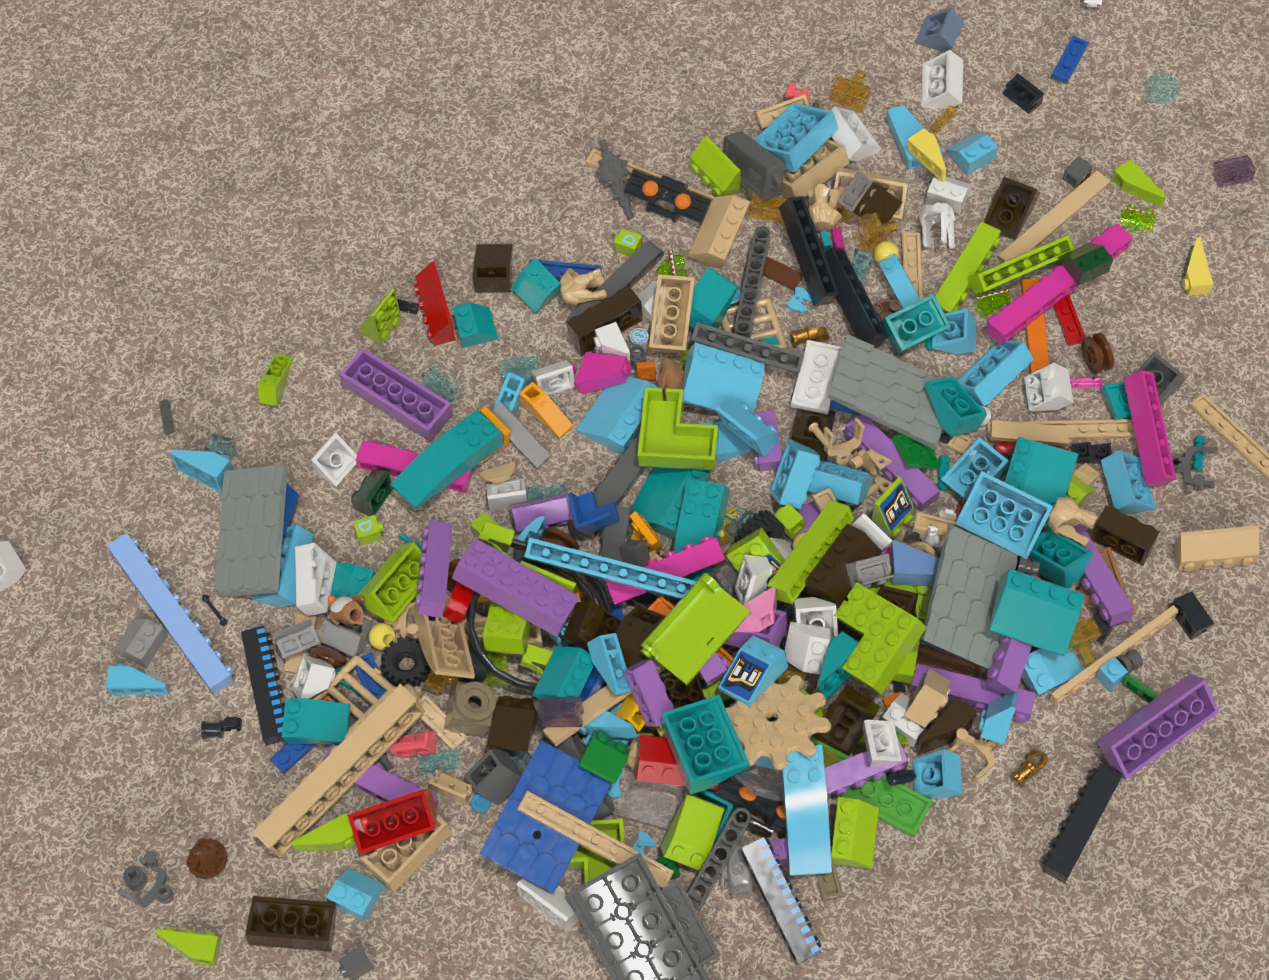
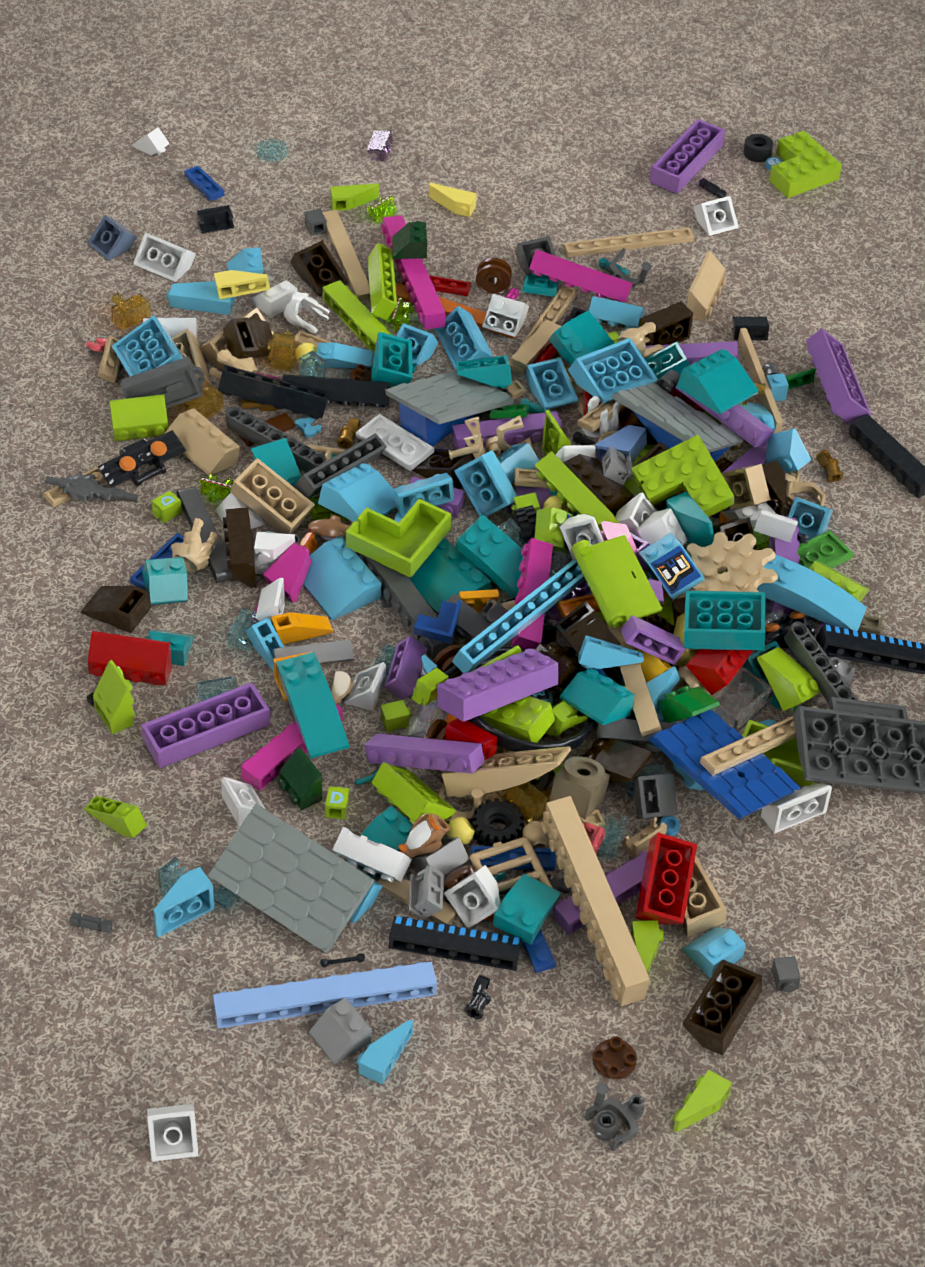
camera: 70 degrees left, 15 degrees down
(560, 712) = (636, 706): clear purple hinge -> none
(943, 119) = (199, 272): clear yellow axle -> none

